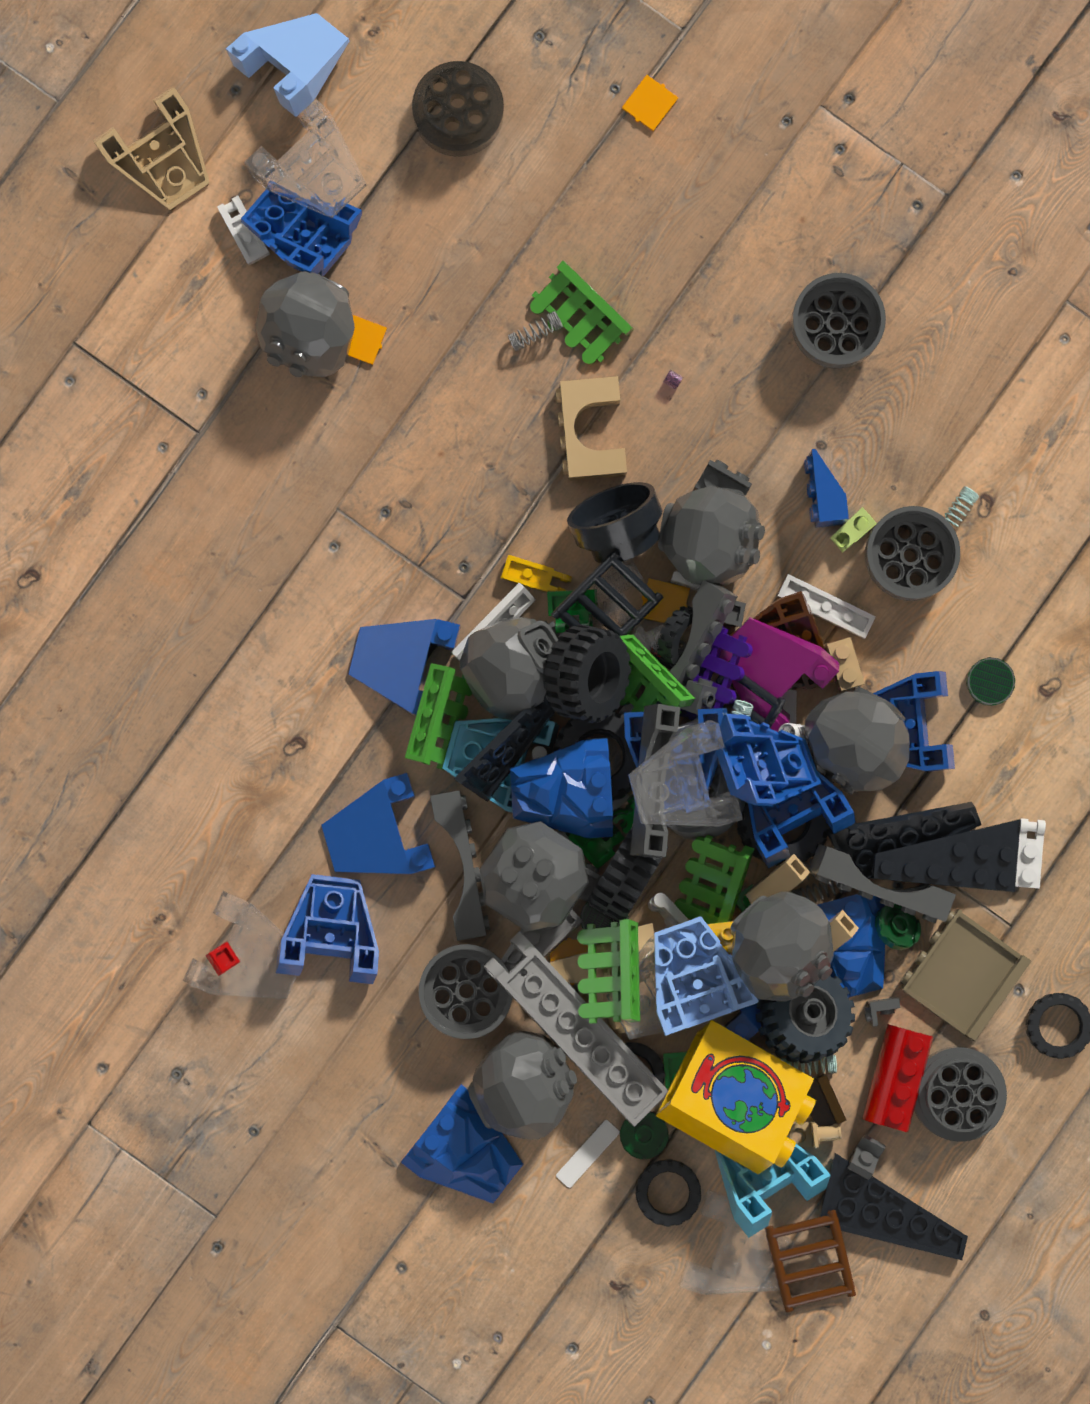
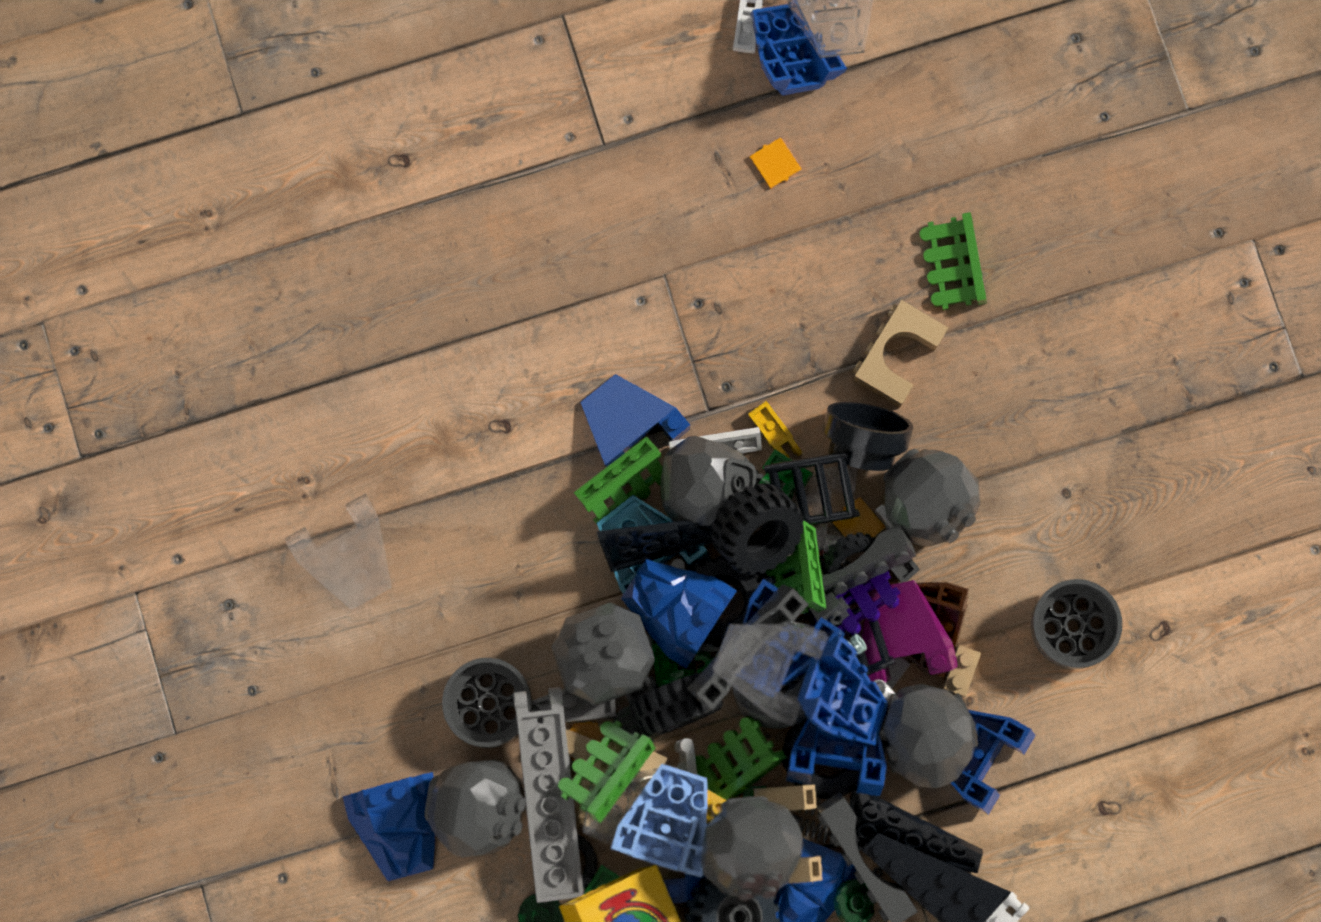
camera: 45 degrees right, 5 degrees down
(222, 958) = (325, 542): red tile -> none
(306, 324) = (741, 120): dark grey rock -> none
(334, 923) = (427, 577): blue wedge -> none
(367, 835) = (503, 531): blue wedge -> none
(449, 814) = (532, 649): dark grey arch -> none
(468, 137) = (966, 72): clear smoke wheel -> none
(553, 320) = (930, 253): light grey piece -> none
(587, 1153) = (487, 898): white sticker -> none
(650, 103) = (1123, 145): light orange piece -> none
(673, 379) = (988, 362): piece -> none
(718, 476) = (971, 458): dark grey bracket -> none
(828, 498) = (1043, 532): blue slope -> none
(830, 607) = (982, 620): white plate -> none
(835, 289) = (1164, 383): dark grey wheel -> none
(853, 530) = (1043, 574): yellowish green leg -> none
(969, 496) = (1152, 614): light aqua piece -> none
(990, 681) = (1065, 768): tile -> none

